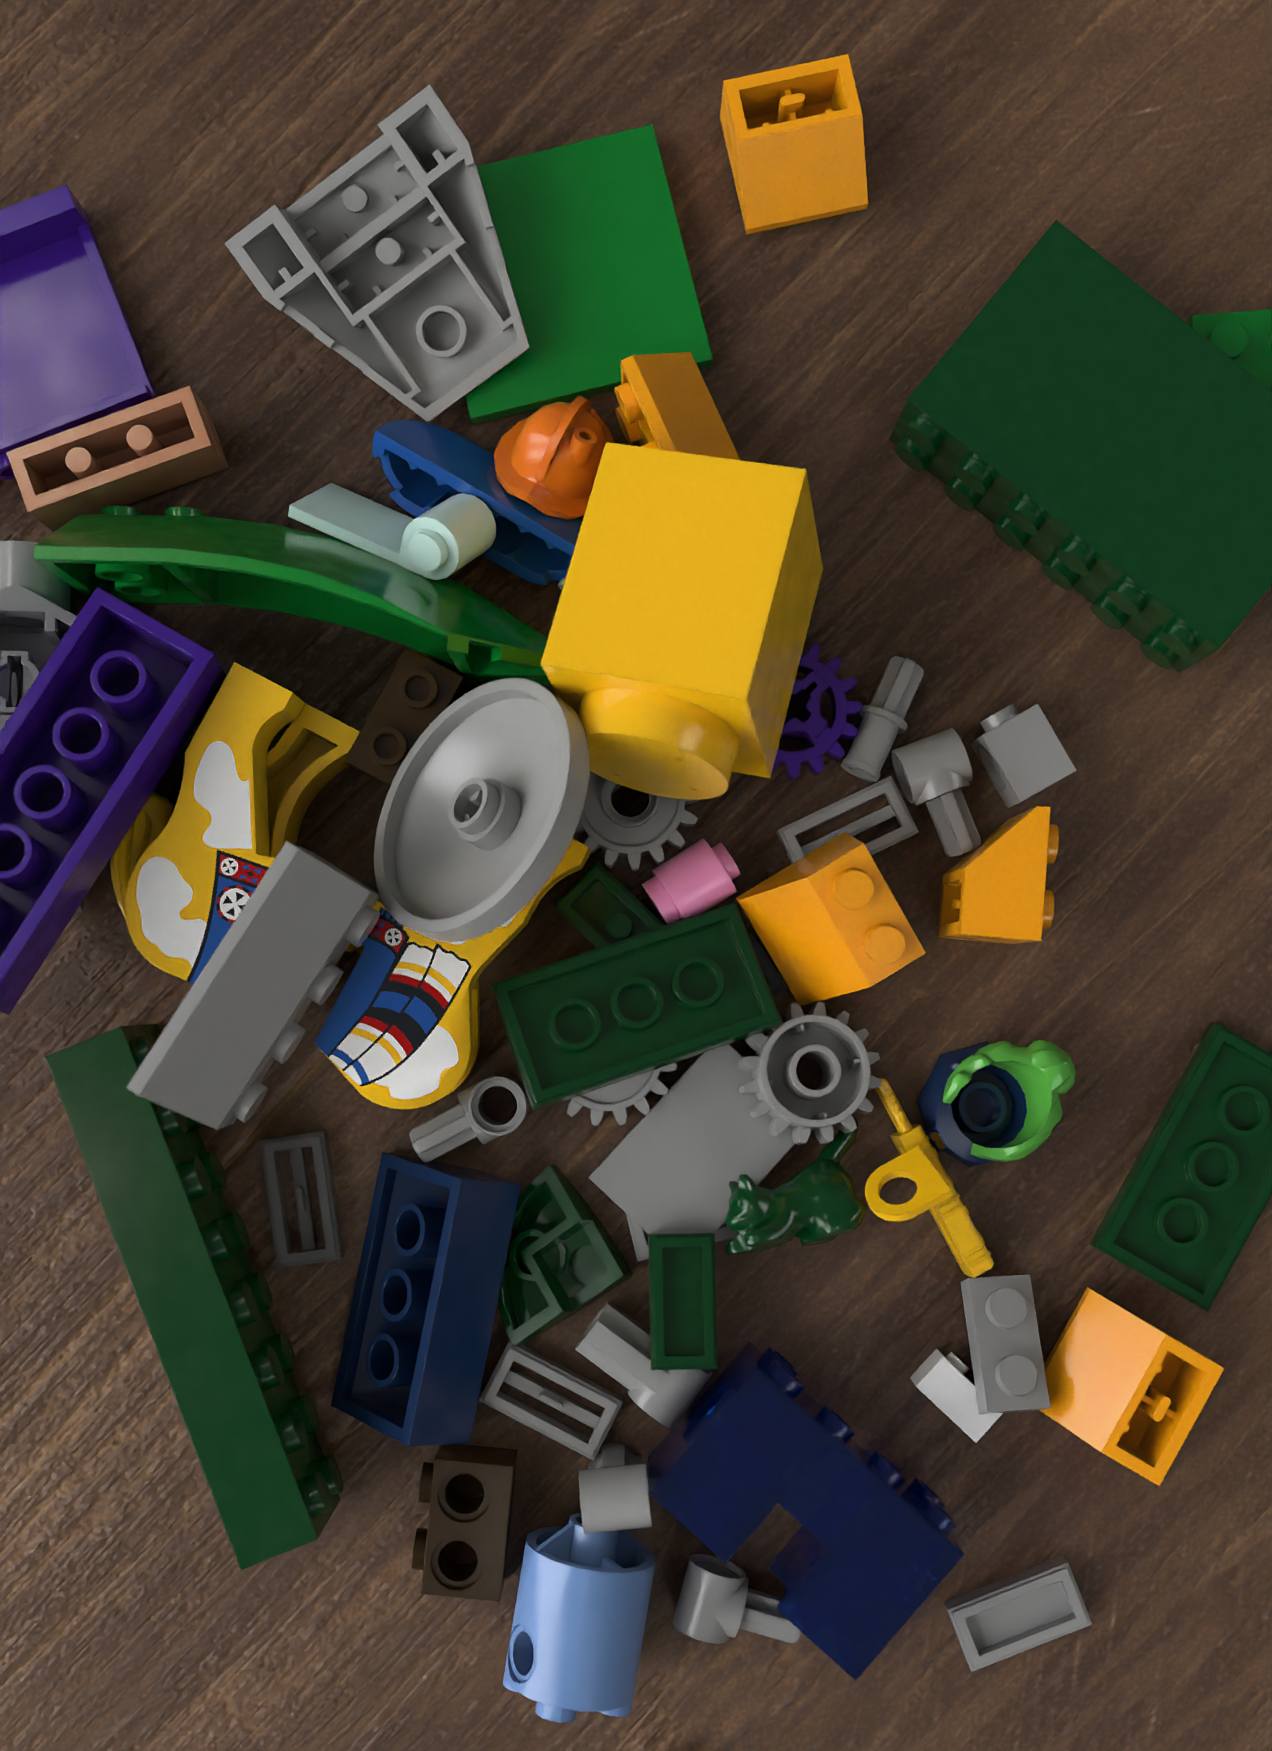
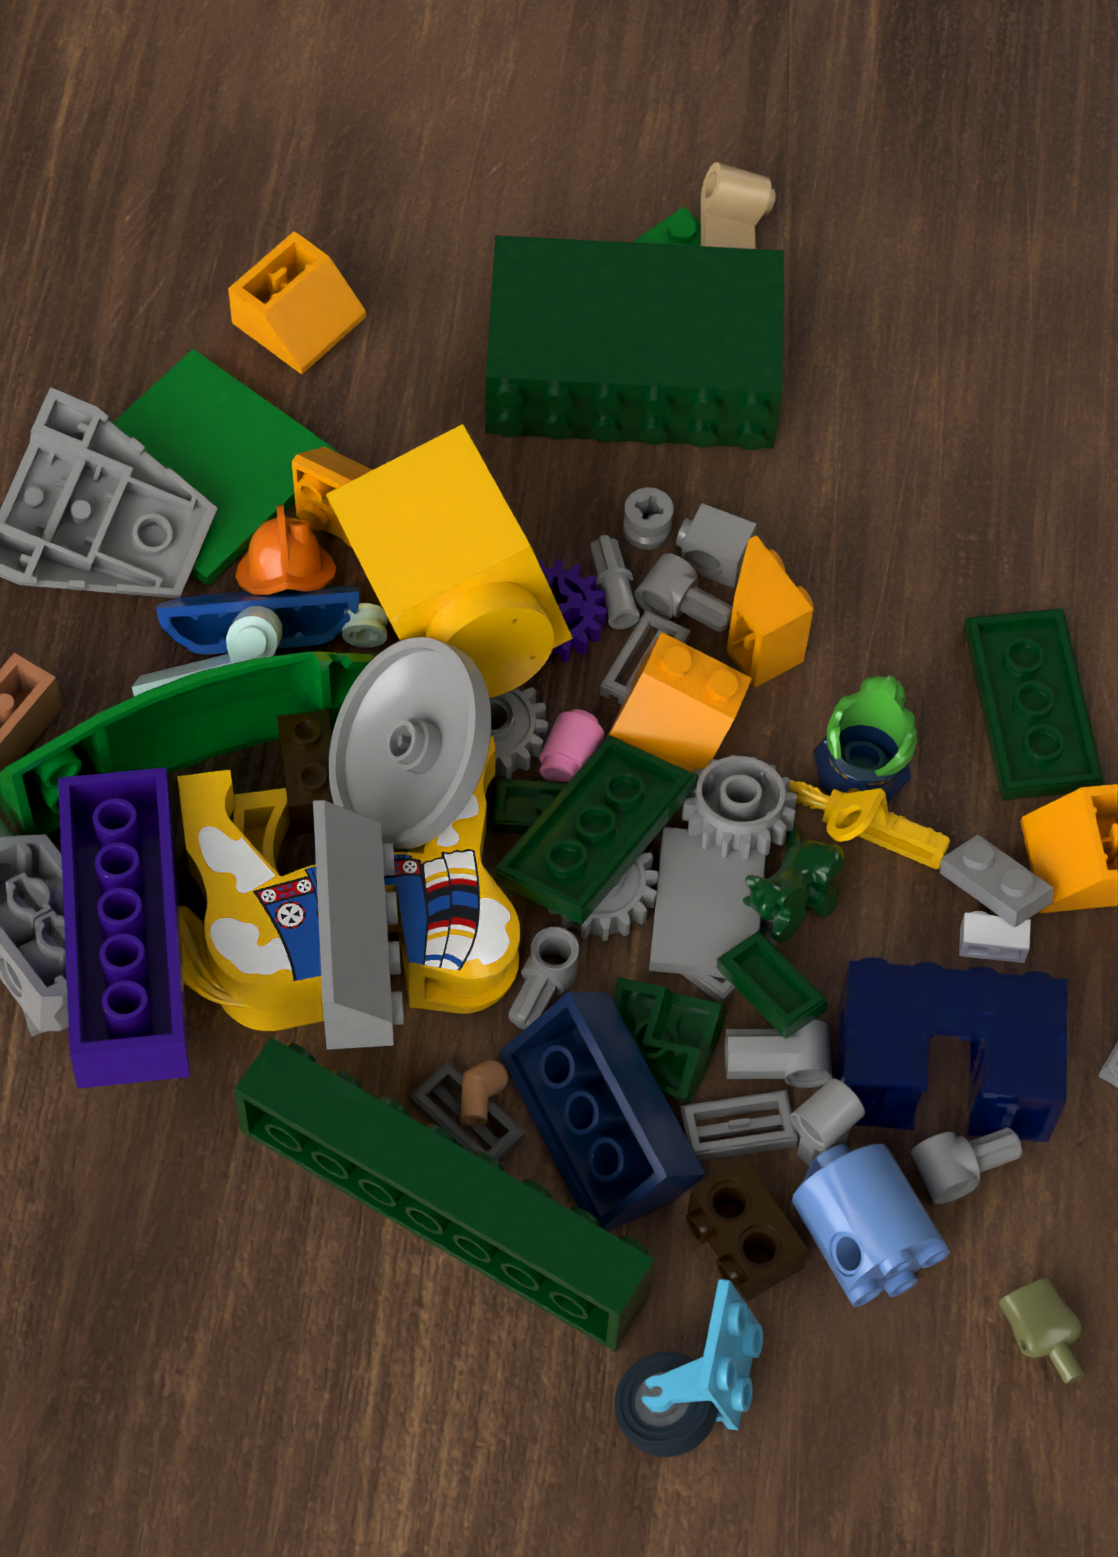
camera: 40 degrees left, 25 degrees down
(267, 1646) = (673, 1401): none -> plate
(325, 1186) = (478, 1085): none -> medium nougat arm
(965, 679) = (654, 529): none -> light grey wheel

